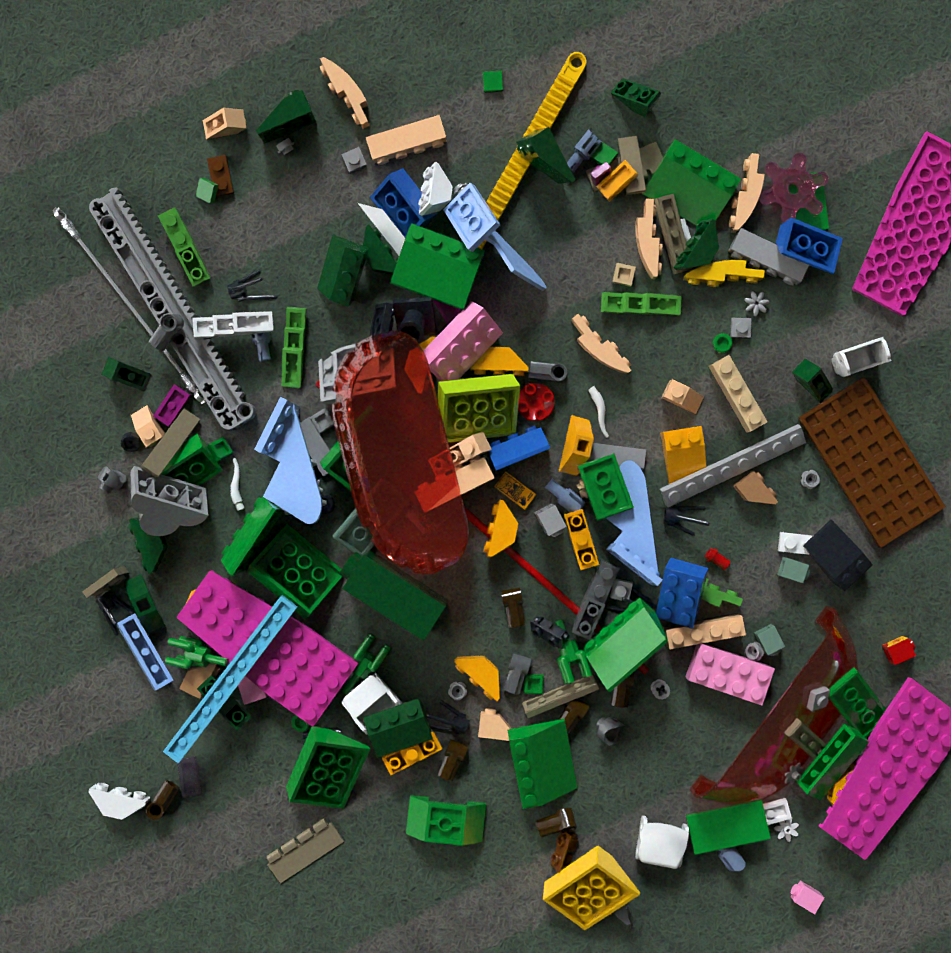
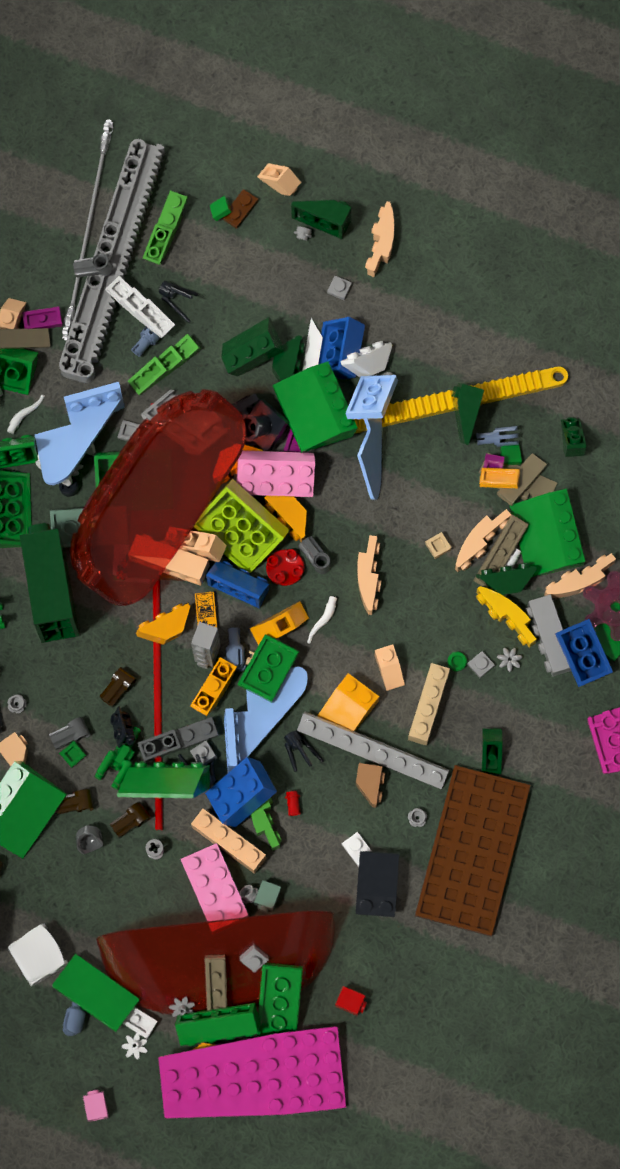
camera: 50 degrees right, 15 degrees down
(126, 374) = (35, 268): dark green slope -> none
(220, 449) = (41, 379): green tile -> none
(315, 444) = (107, 438): light grey tile -> none
(406, 139) = (387, 309): light nougat brick -> none
(481, 673) = (46, 708): light orange slope -> none
(492, 81) = (488, 332): green tile -> none
(560, 696) = (81, 780): dark tan tile -> none
(622, 453) = (303, 660): light grey tile -> none
(641, 303) = (429, 577): bright green slope -> none
(793, 570) = (337, 866): sand green brick -> none
(861, 357) = (538, 764): white piece -> none

